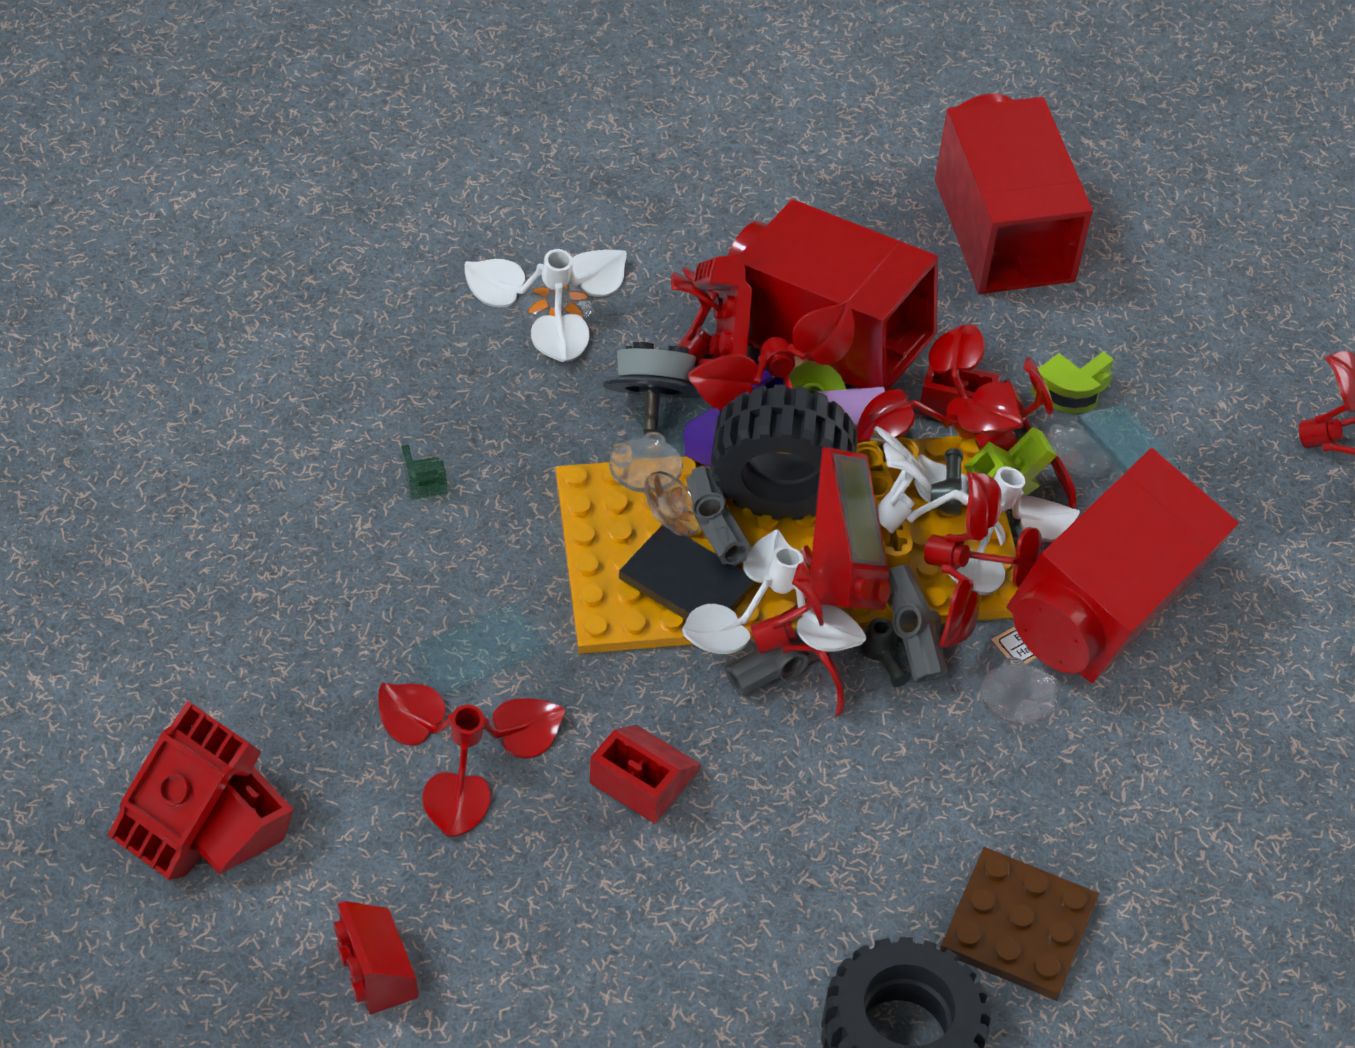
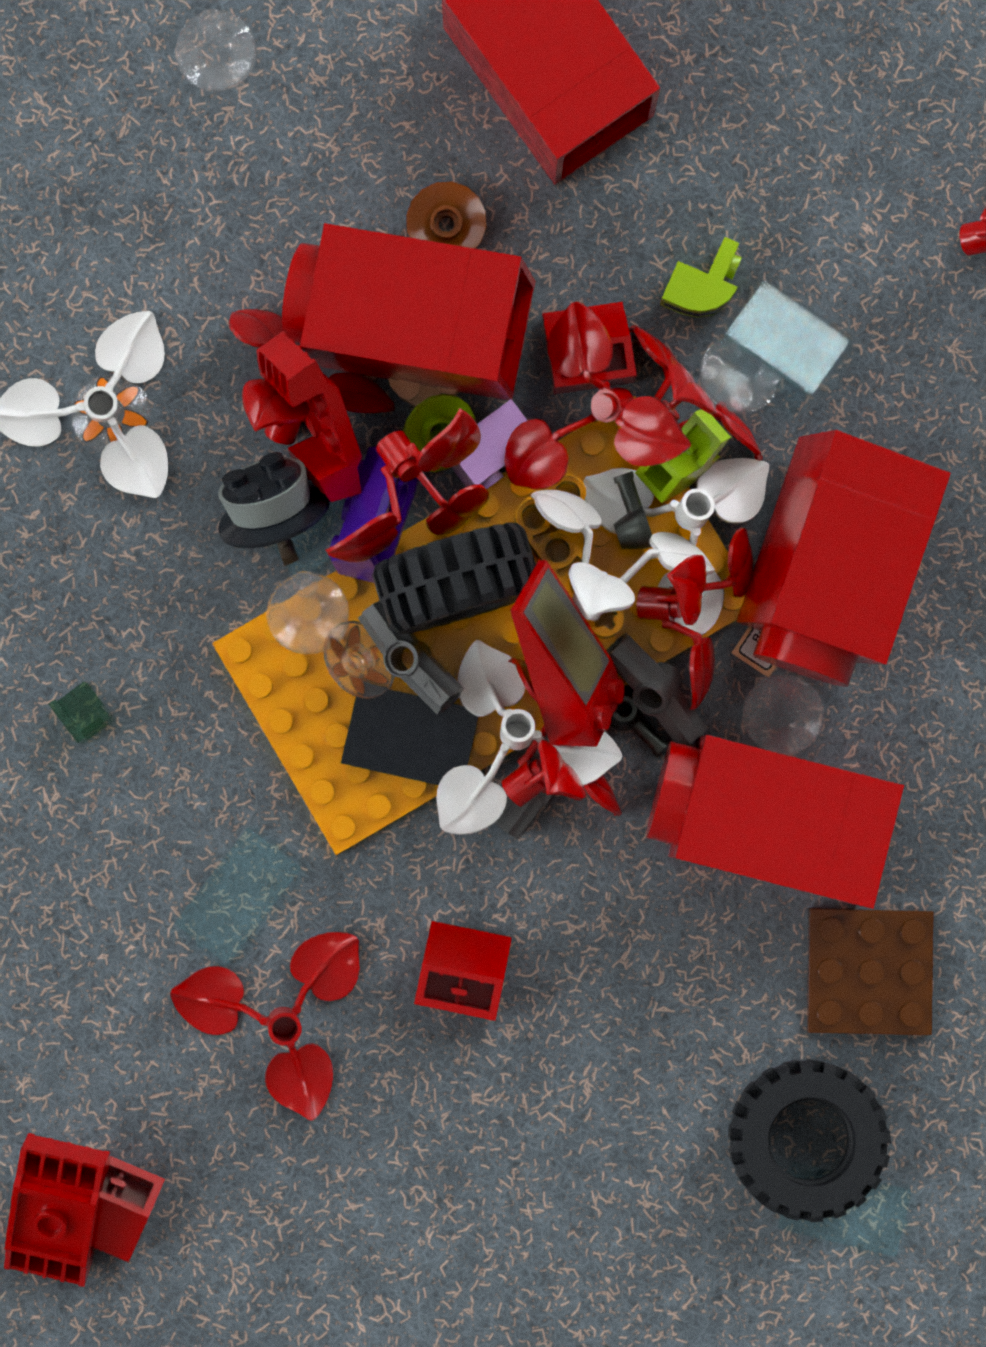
camera: 20 degrees left, 35 degrees up
(374, 956) = (311, 1284): red slope -> none
(757, 130) = (216, 50): none -> clear dish
(983, 740) = (775, 818): none -> red container

